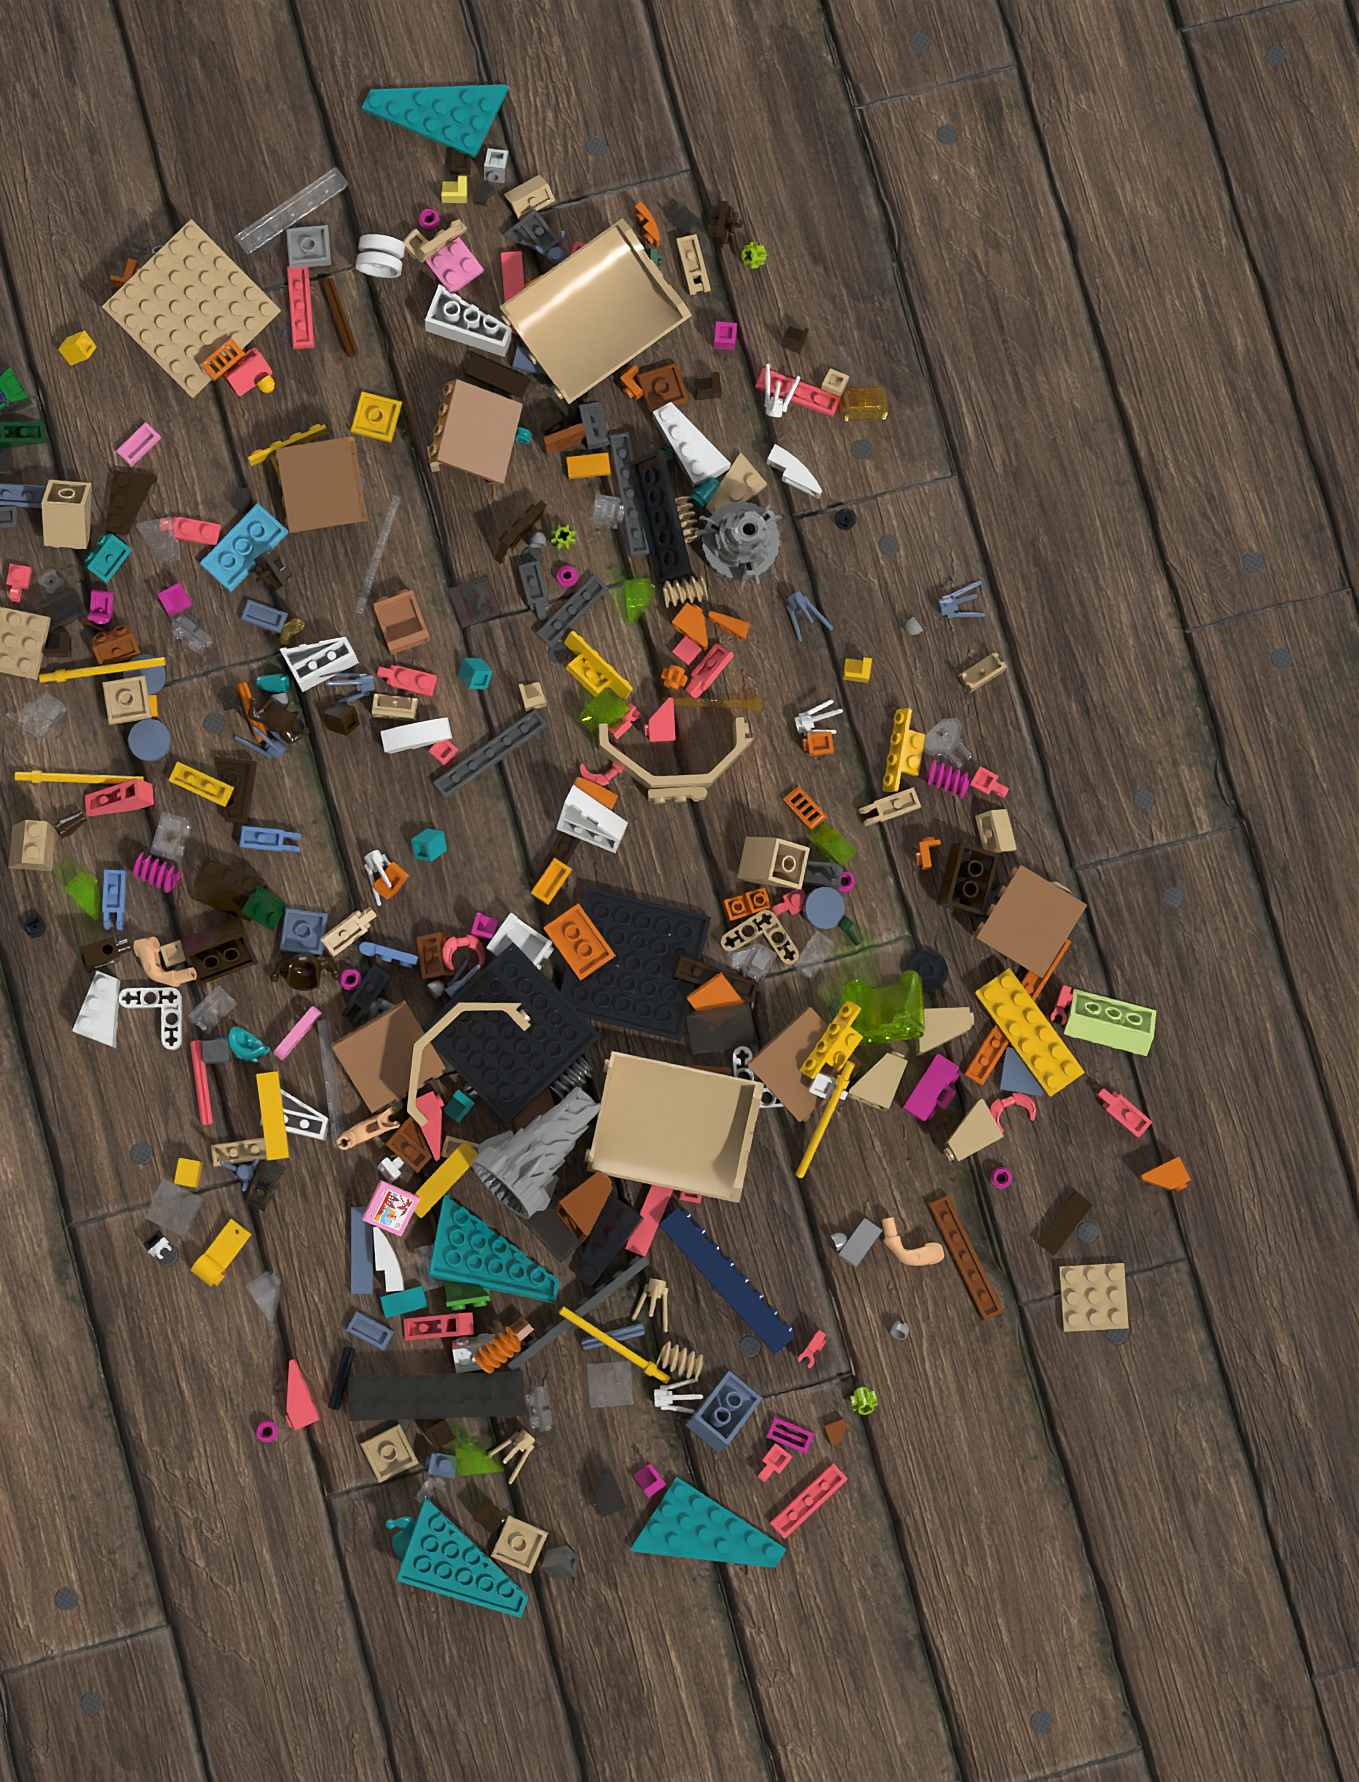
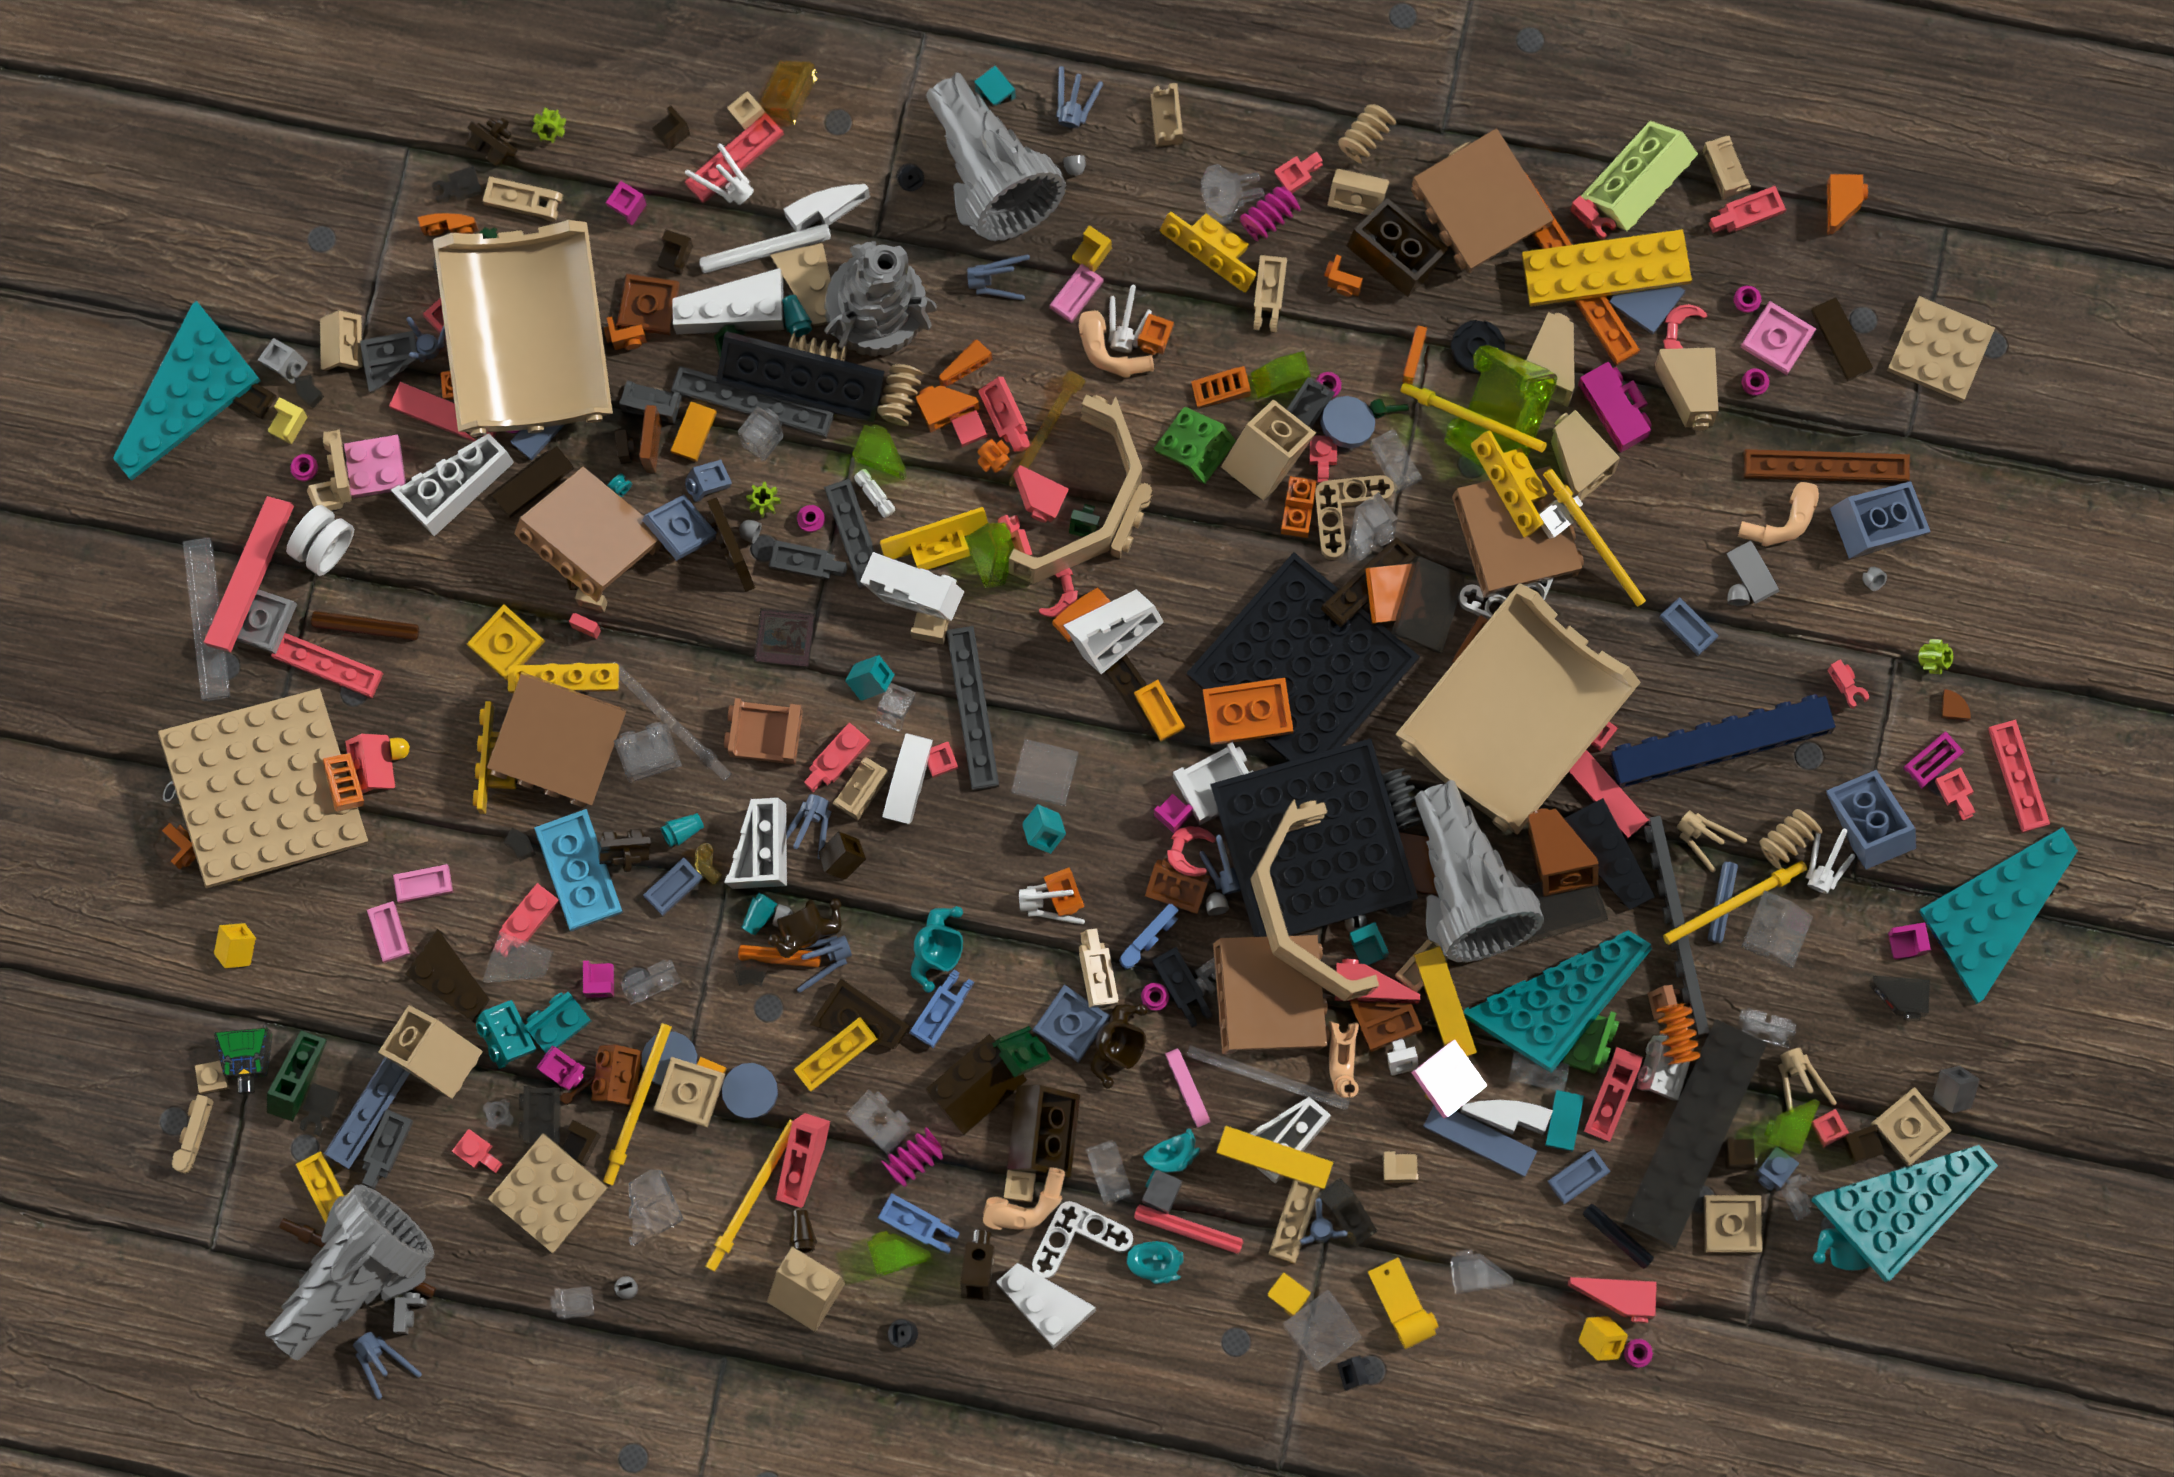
camera: 50 degrees left, 5 degrees down
(132, 588) = (557, 1022): none -> teal bracket
(167, 1071) = (1155, 1261): none -> teal hat
(182, 449) = (423, 883): none -> bright pink tile
(264, 1402) = (1603, 1338): none -> yellow panel
(305, 601) = (681, 829): none -> teal cone
(310, 814) = (936, 946): none -> teal piece
(314, 1205) = (1399, 1168): none -> tan panel
(335, 221) = (248, 574): none -> coral tile
(345, 551) = (647, 752): none -> clear slope
(371, 476) = (575, 676): none -> yellow bracket
(413, 464) = (585, 625): none -> coral tile
(463, 700) = (894, 707): none -> clear bracket
(469, 826) = (1045, 772): none -> clear tile
(490, 1487) = (1829, 1128): none -> coral tile
(514, 490) = (680, 527): none -> sand blue tile
(548, 669) = (912, 587): none -> white wedge
(558, 492) = (707, 479): none -> sand blue bracket
(607, 610) = (874, 493): none -> white axle
(658, 763) = (1084, 522): none -> dark green tile
(743, 446) = (764, 248): none -> white axle
(754, 811) = (1196, 443): none -> bright green bracket
(798, 699) = (1092, 332): none -> light nougat piece
(799, 1217) = (1688, 626): none -> sand blue tile
(821, 675) = (1076, 293): none -> bright pink tile
(869, 954) = (1428, 398): none -> yellow bar
(870, 584) = (1004, 183): none -> light grey cone
(896, 930) = (1414, 355): none -> orange tile
(939, 543) = (994, 86): none -> teal panel
(944, 1314) = (1879, 519): none -> sand blue slope
(1041, 816) = (1364, 131): none -> tan piece
(1042, 1178) = (1778, 338): none -> bright pink tile
(1065, 1139) = (1751, 292): none -> dark pink plate
(1149, 1081) = (1725, 167): none -> tan hinge

